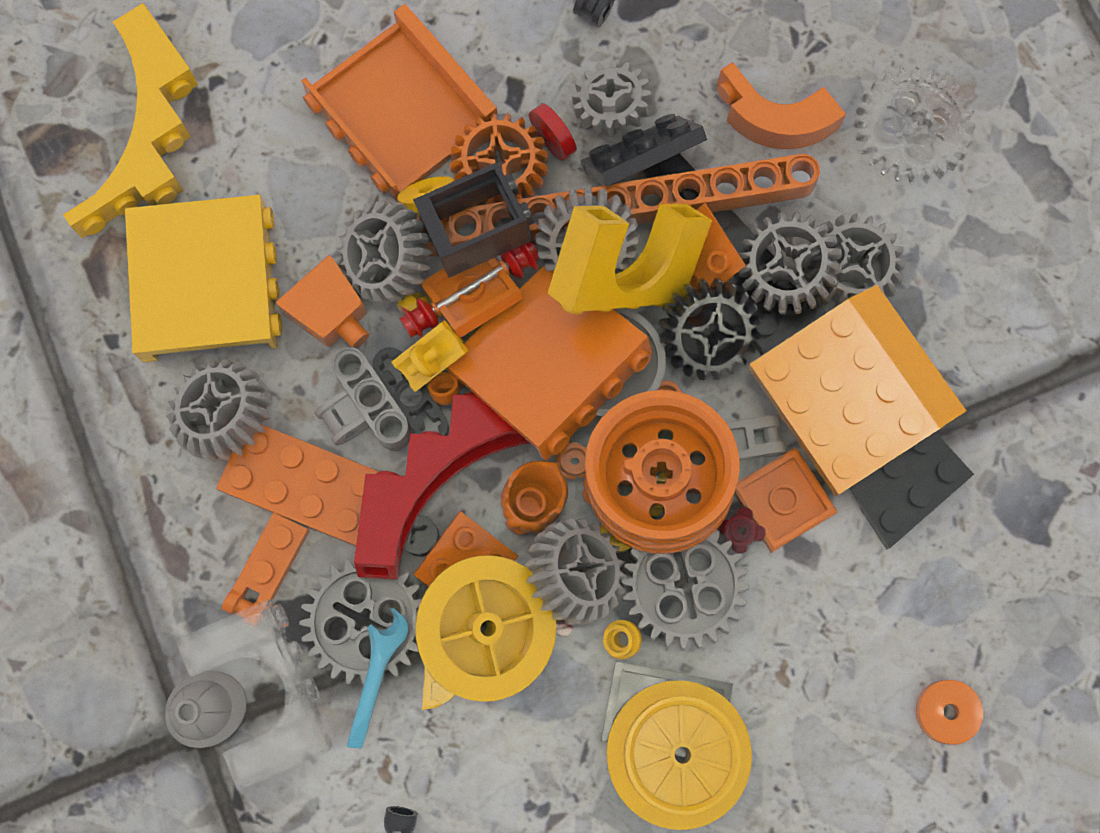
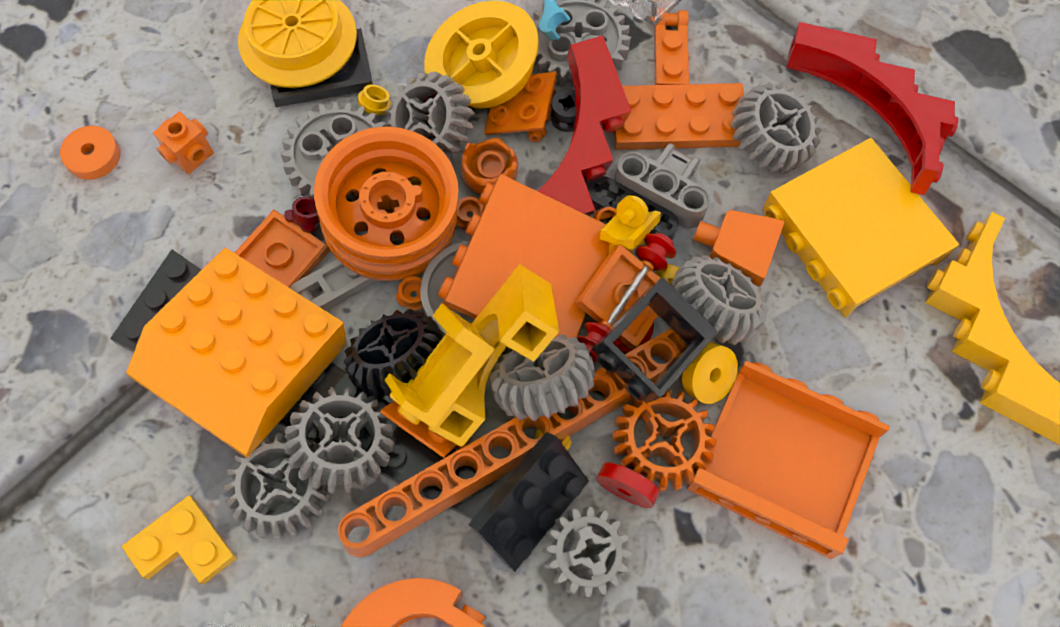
camera: 155 degrees right, 10 degrees down
(73, 399) = (889, 89): none -> red arch
(679, 256) = (444, 372): none -> yellow panel
(832, 670) = (183, 142): none -> orange brick
(948, 265) = (182, 533): none -> yellow plate

